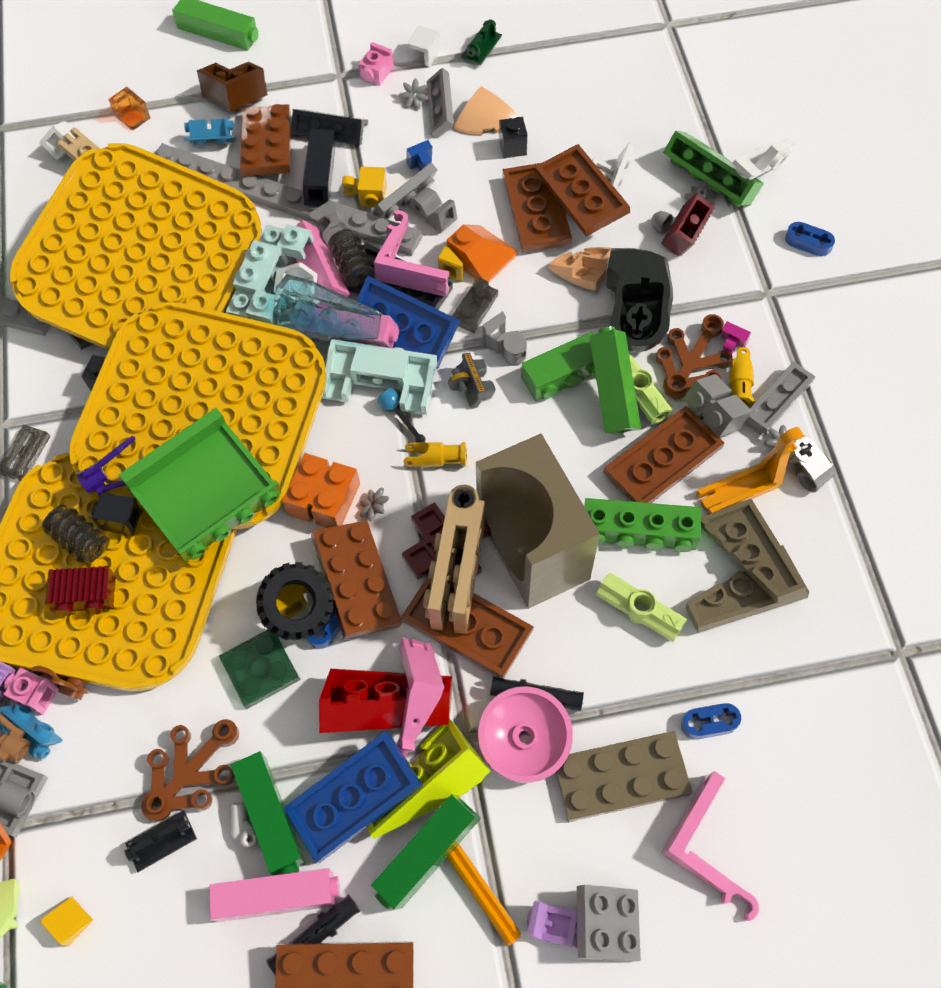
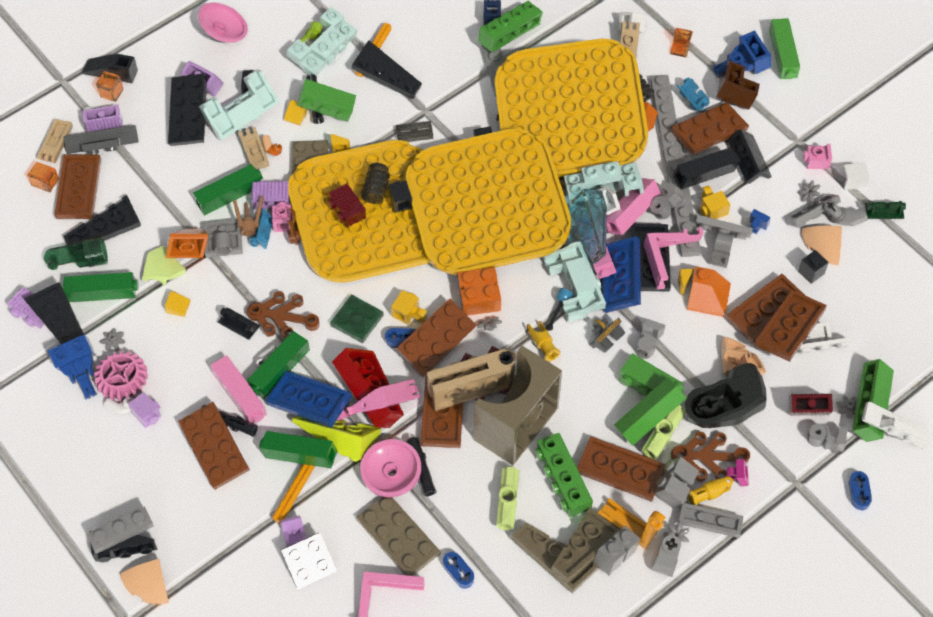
camera: 60 degrees right, 5 degrees down
(94, 476) = (412, 172): dark purple plant -> none
(197, 50) = (749, 53): none -> blue brick
(200, 485) = (439, 225): bright green panel -> none
(313, 582) = (392, 295): black tyre -> none
(350, 257) = (644, 220): clear smoke piece -> none
(468, 80) = (844, 216): none -> light grey arm
(475, 305) = (665, 310): clear smoke hinge -> none
(662, 221) = (808, 388): light grey hinge -> none
(734, 233) = (820, 435): none -> light grey leg
(786, 518) = (616, 550): none -> light grey piece

